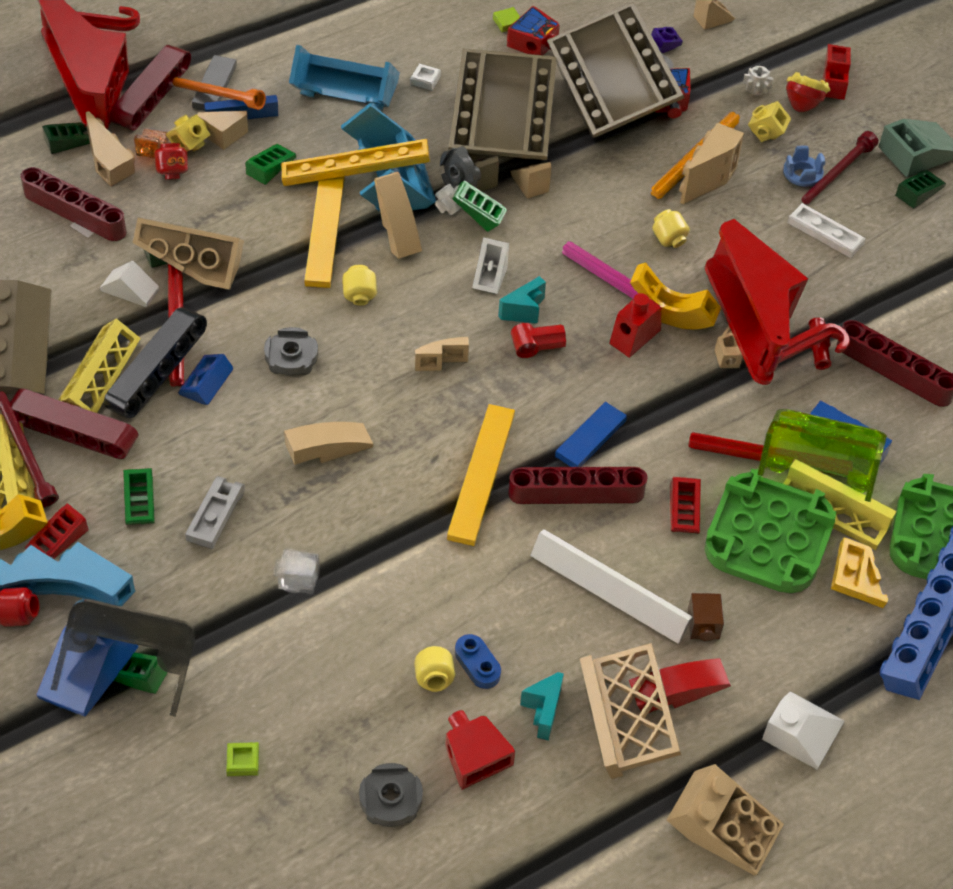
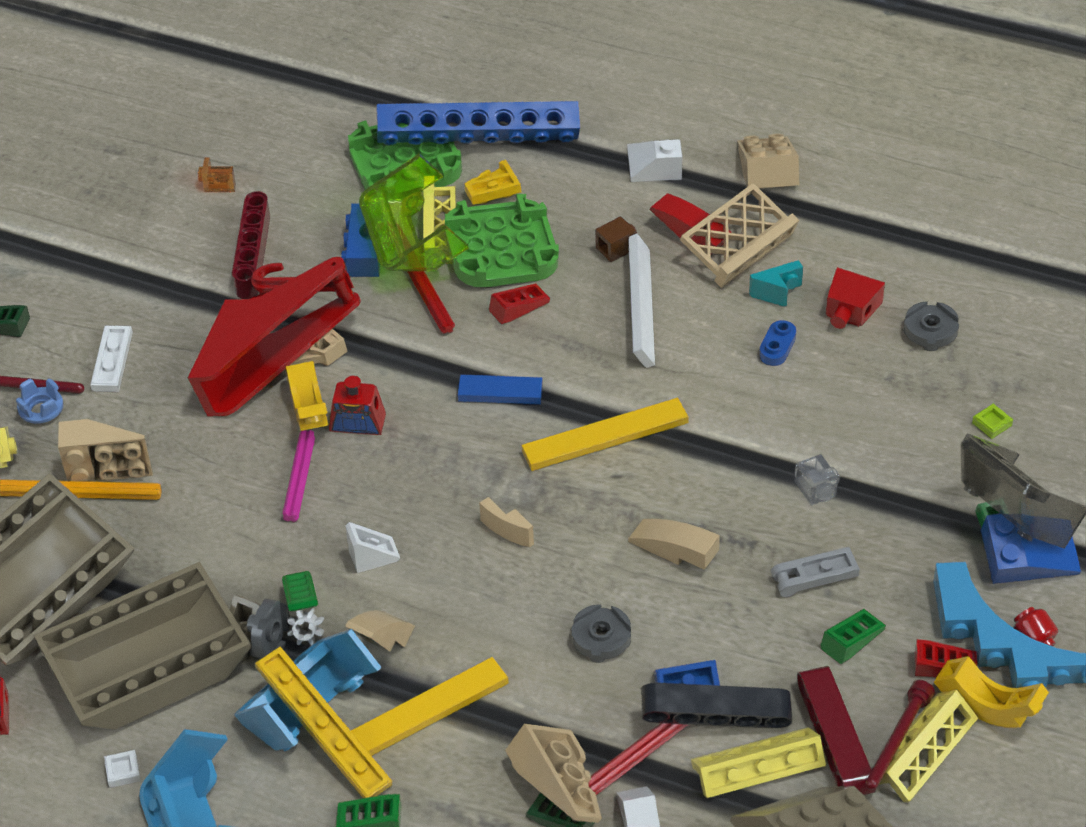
camera: 120 degrees left, 5 degrees down
(359, 285) = (478, 628): light yellow head -> none
(434, 668) = (814, 353): light yellow head -> none
(523, 303) = (392, 505): teal slope -> none
(531, 340) = (431, 475): red piece -> none
(533, 179) = (223, 575): tan slope -> none
(595, 484) = (565, 365): dark red beam -> none
(670, 228) = (207, 450): light yellow head -> none

